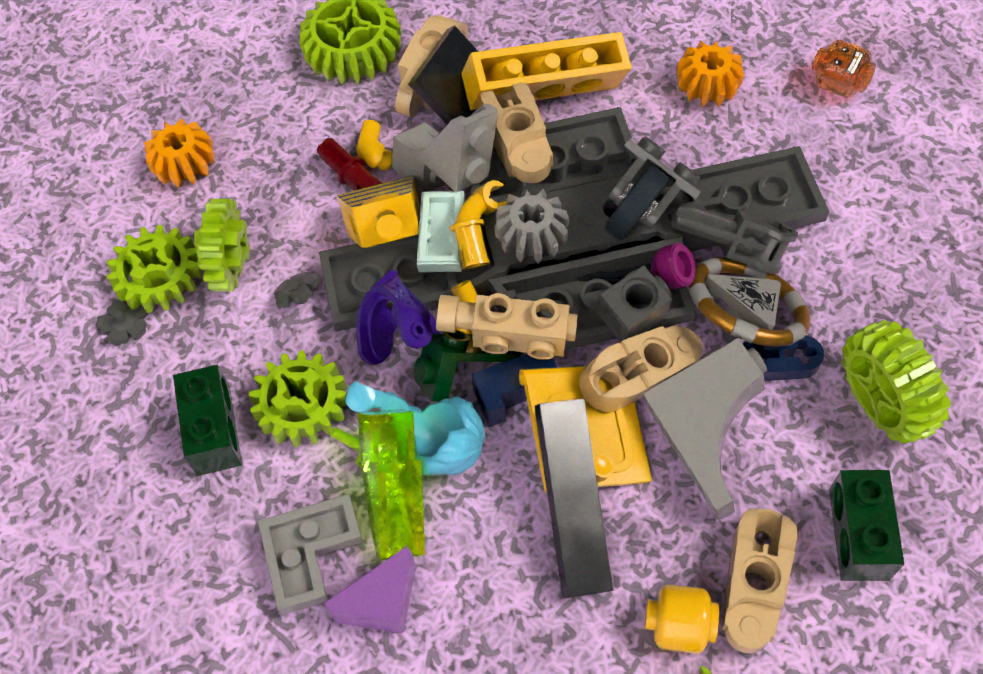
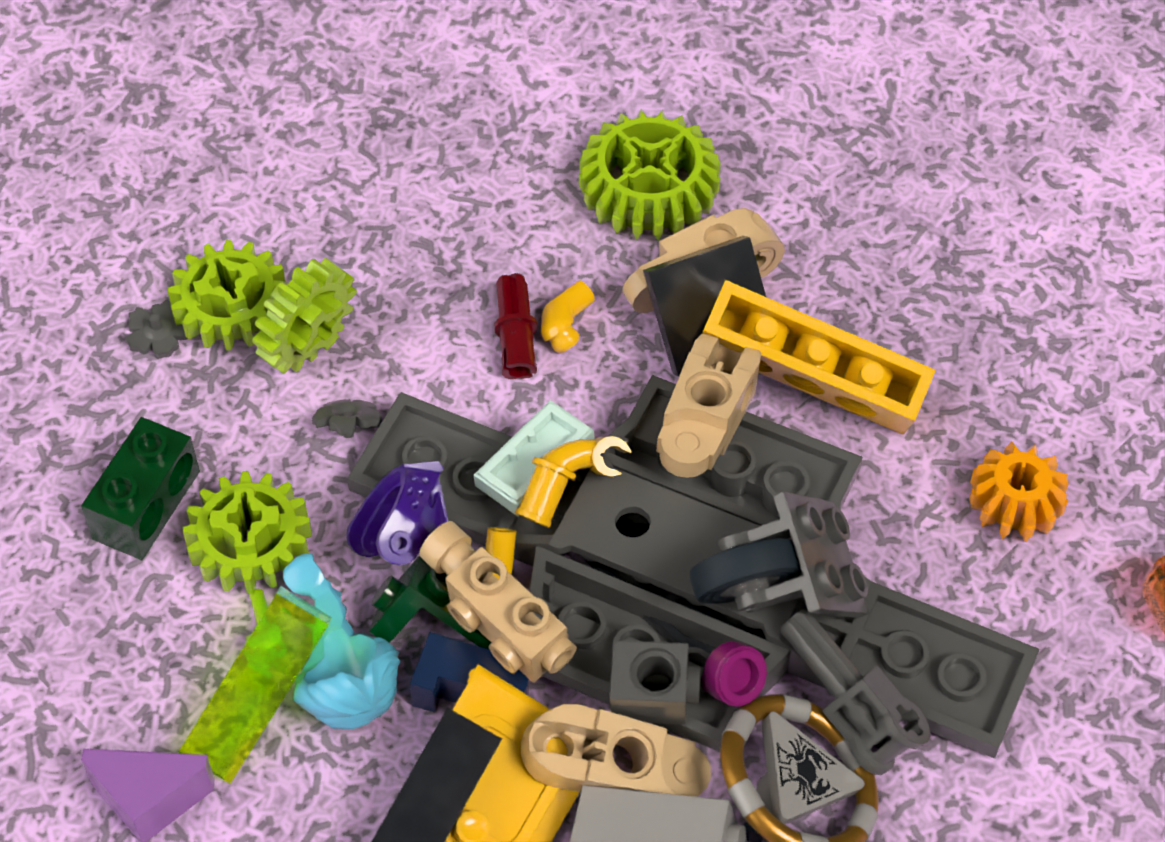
camera: 35 degrees right, 5 degrees down
(179, 152) = (359, 186): light orange gear -> none
(293, 546) = (121, 673): light grey plate -> none
(381, 212) = (495, 391): yellow torso -> none
(453, 157) = (612, 377): light grey arch -> none
(531, 225) = (642, 519): light grey gear -> none

